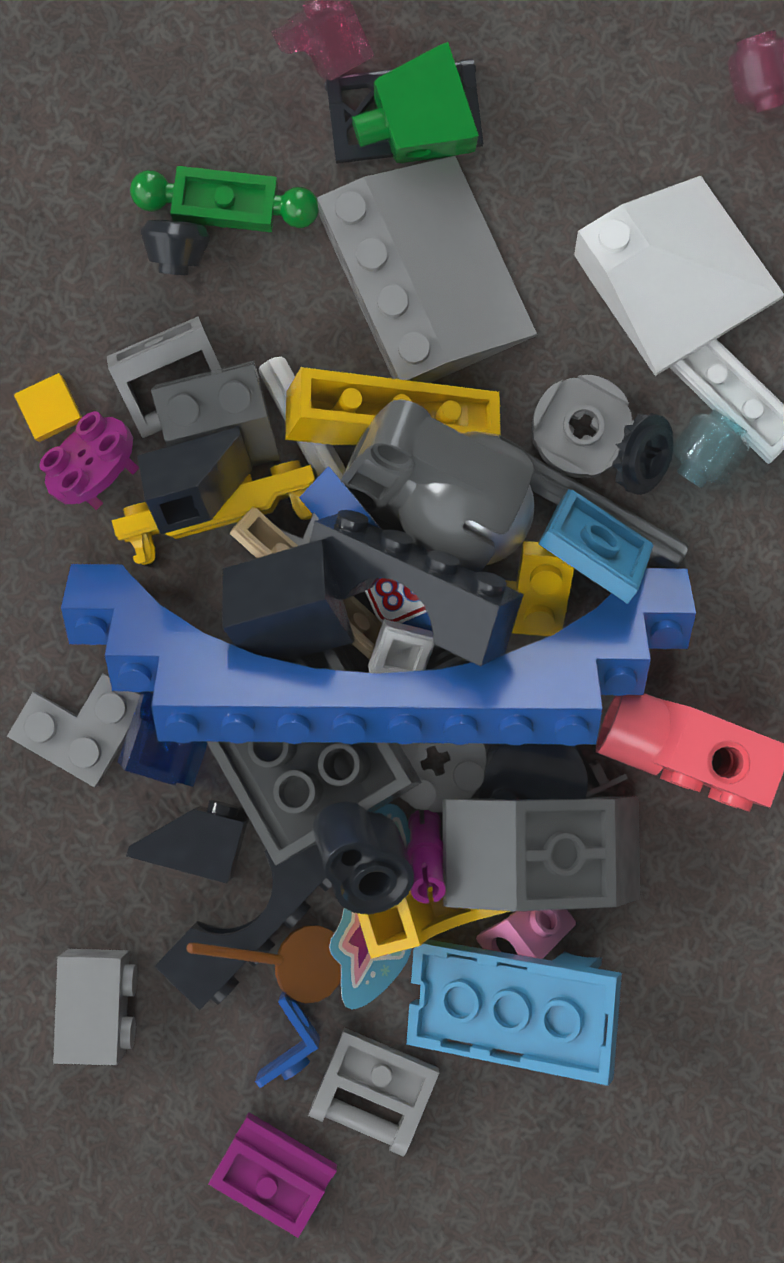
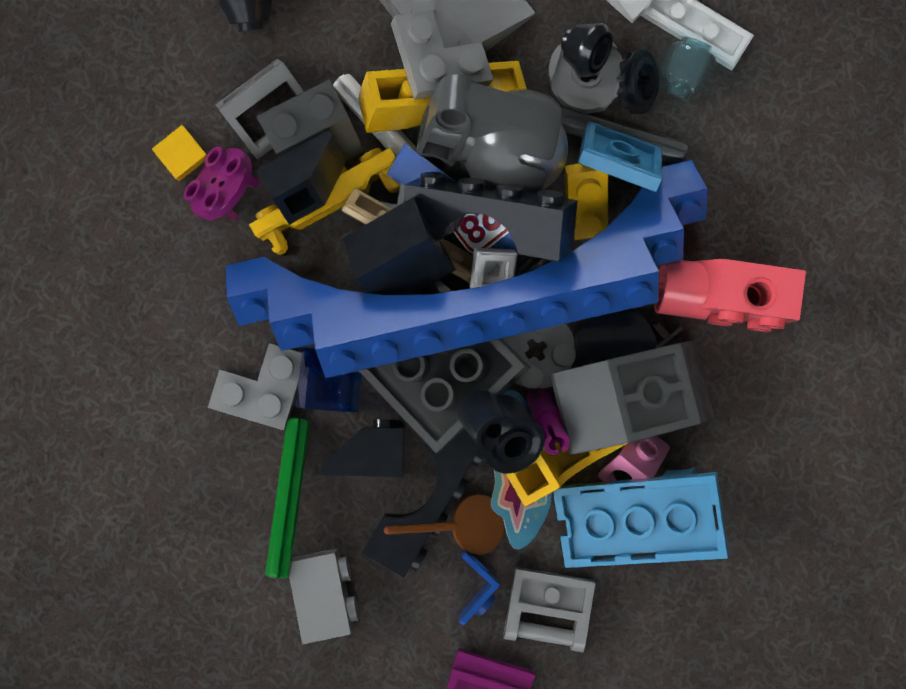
camera: 15 degrees left, 0 degrees up
(79, 875) = (288, 499): none -> green axle
(384, 374) = (428, 60): none -> light grey plate
(588, 397) = (587, 47): none -> black cone

